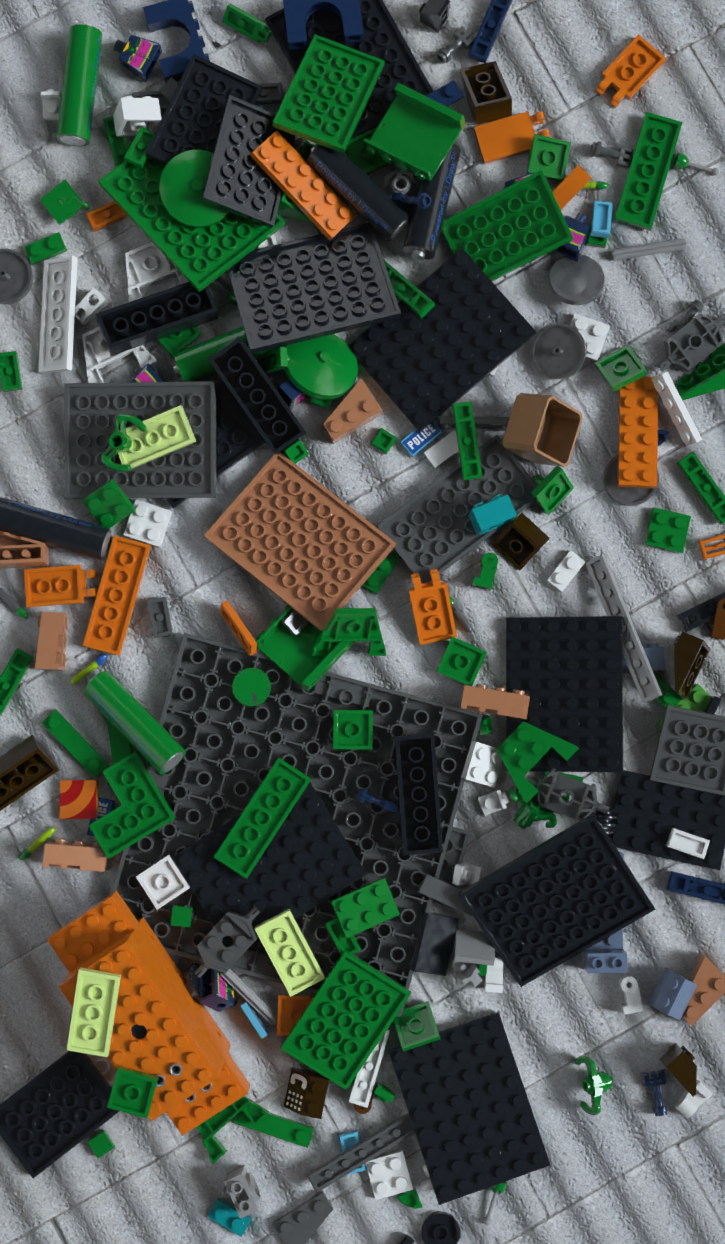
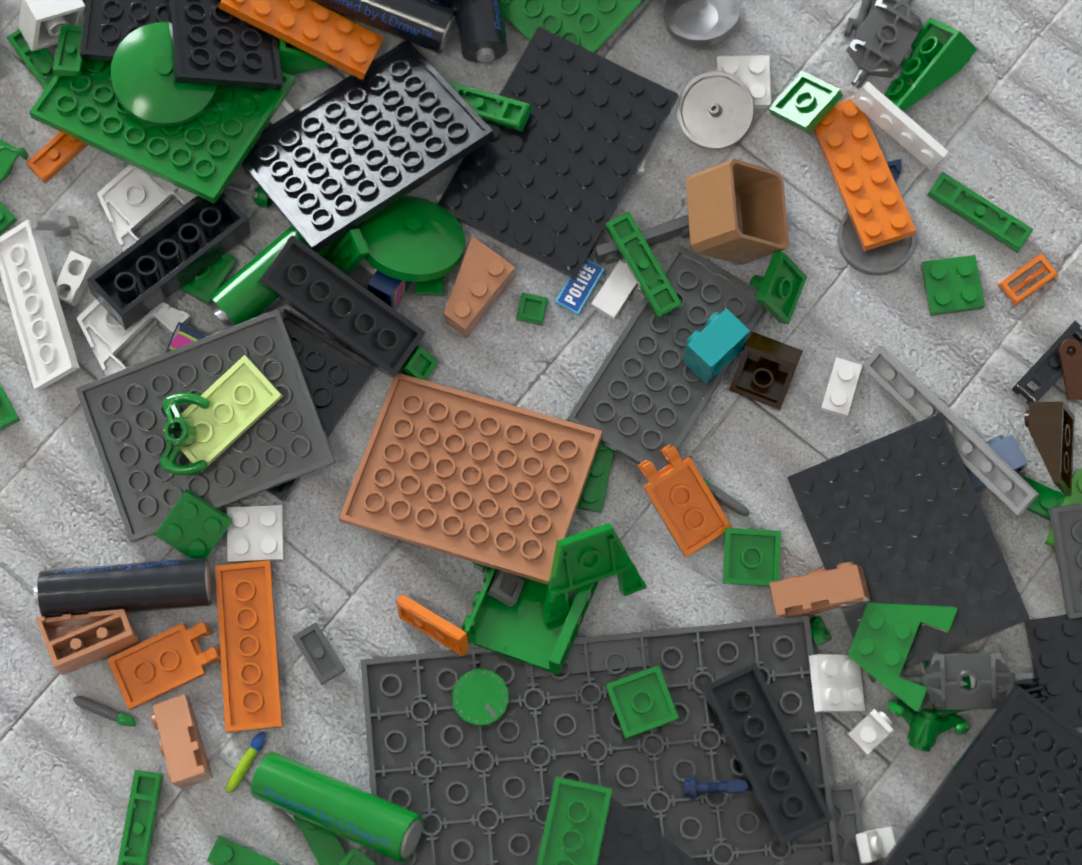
camera: 20 degrees left, 10 degrees down
(92, 267) = (59, 227): none -> light grey bar
(489, 565) = (737, 418): green leg -> none

